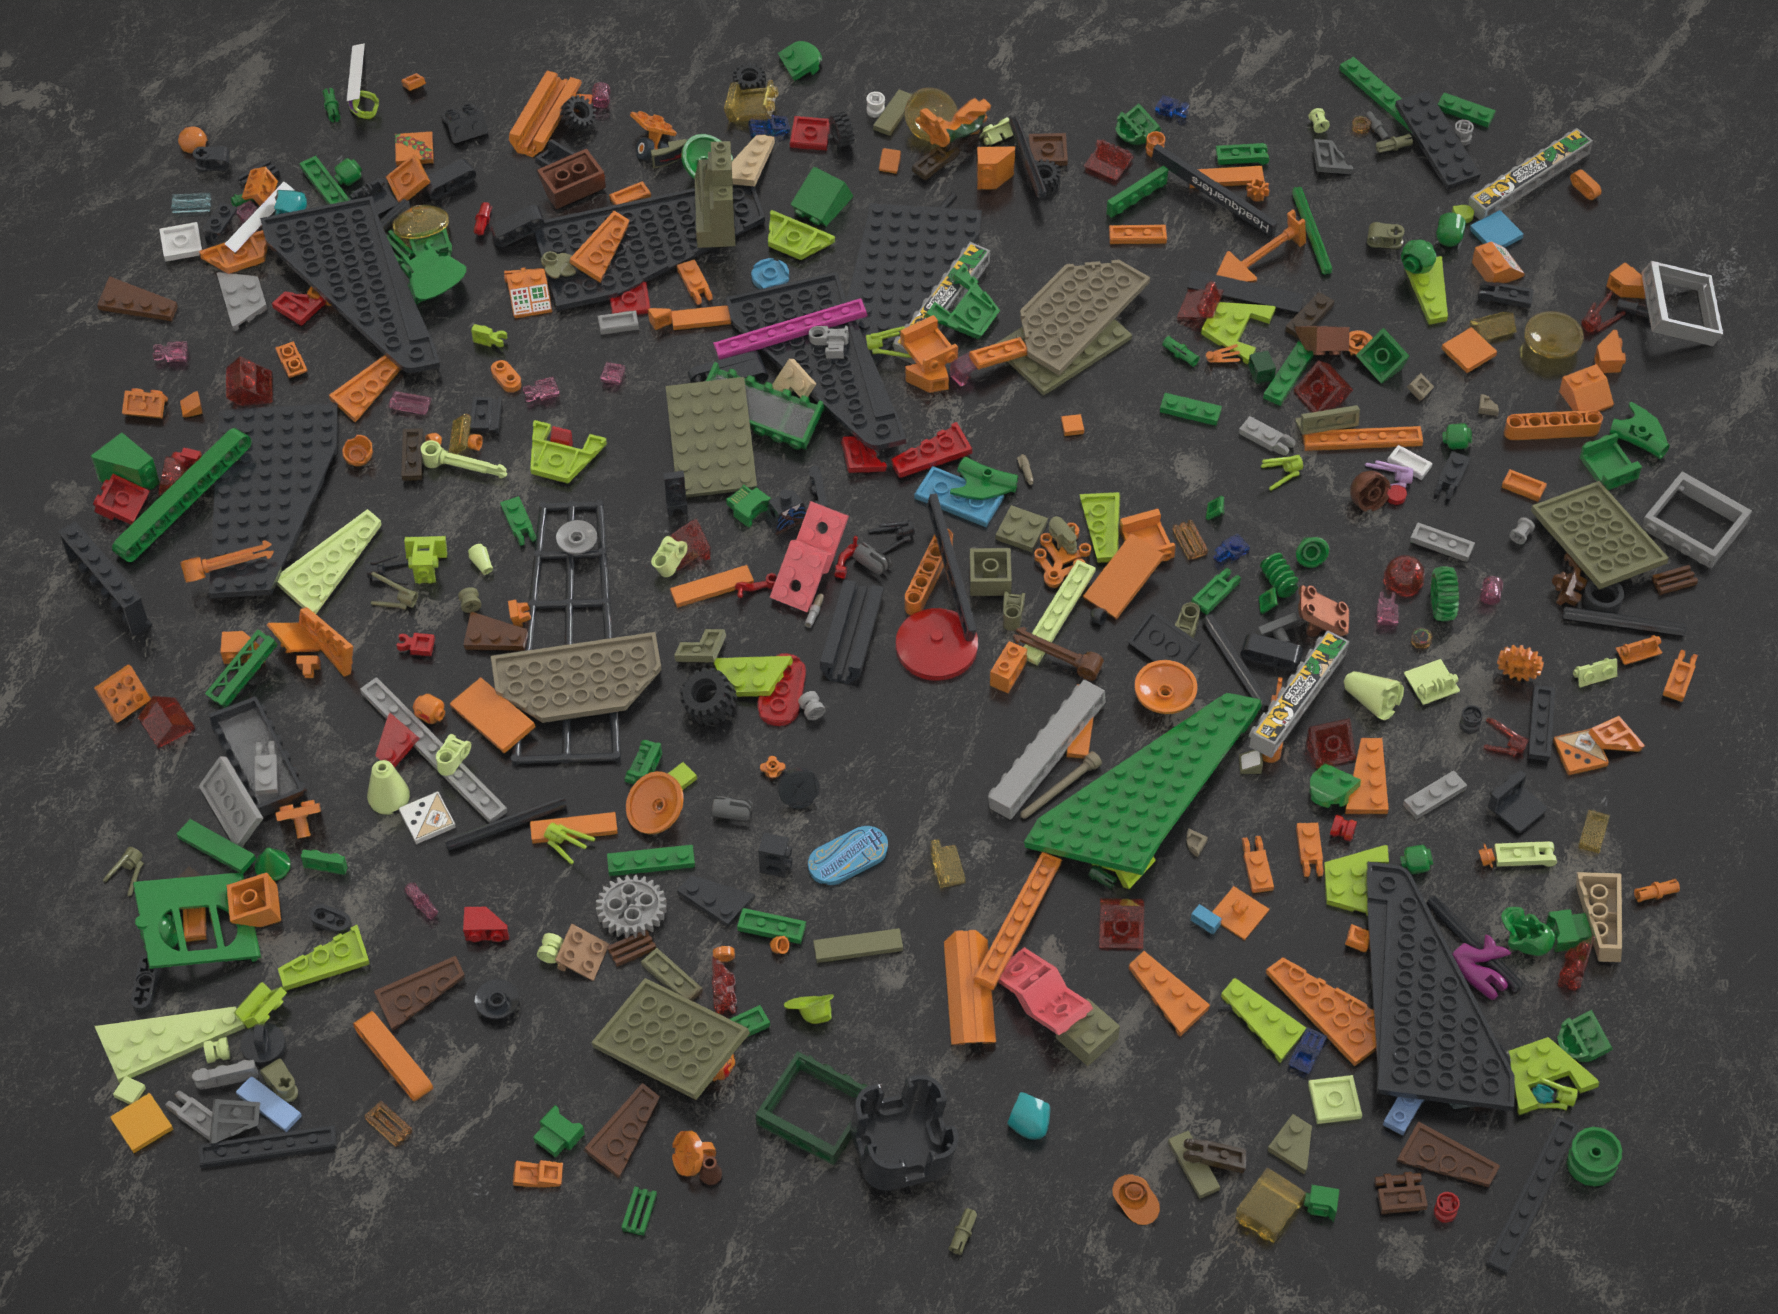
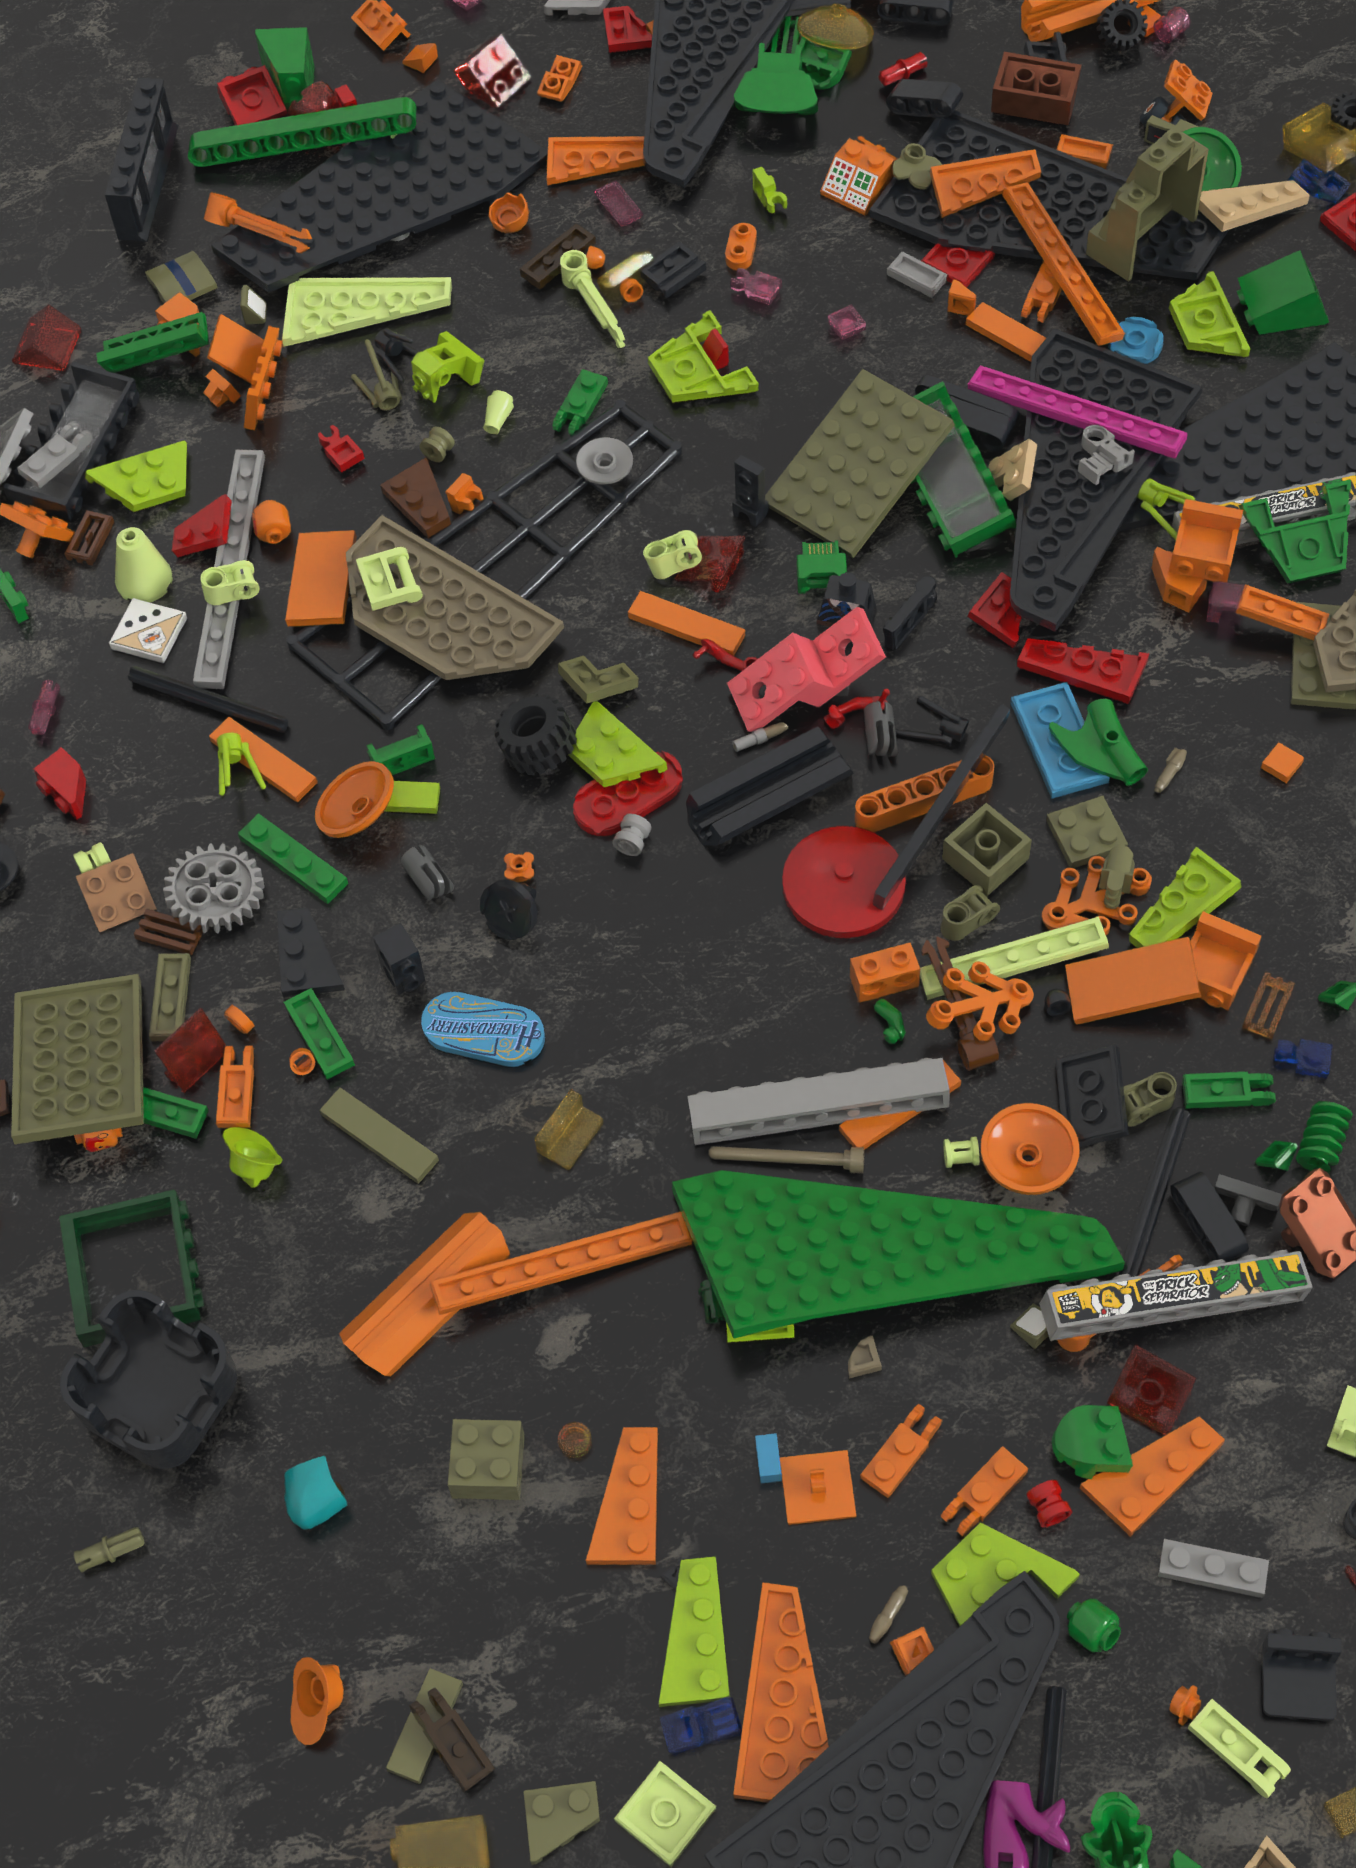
camera: 50 degrees right, 5 degrees up
(110, 691) = (39, 278): orange plate -> none
(206, 627) = (183, 275): none -> olive slope
(268, 611) = (252, 306): none -> olive slope
(326, 742) = (145, 478): none -> lime wing
(336, 812) = (93, 540): none -> reddish brown tile
(537, 687) = (379, 580): none -> yellowish green plate
(693, 260) = (1063, 264): none -> orange tile
(762, 986) = (235, 1089): none -> orange hinge
(1035, 684) = (894, 1019): none -> green arm
(1043, 992) = (481, 1368): coral bracket -> none
(1076, 628) = (1013, 992): none -> orange plant
(1112, 990) = (574, 1440): none -> clear orange tile
(1121, 923) = (669, 1371): clear red slope -> none
(1135, 716) = (961, 1152): none -> yellowish green bush
(1331, 937) = (885, 1618): none -> dark tan piece
(1375, 692) = (1274, 1379): yellowish green cone -> none

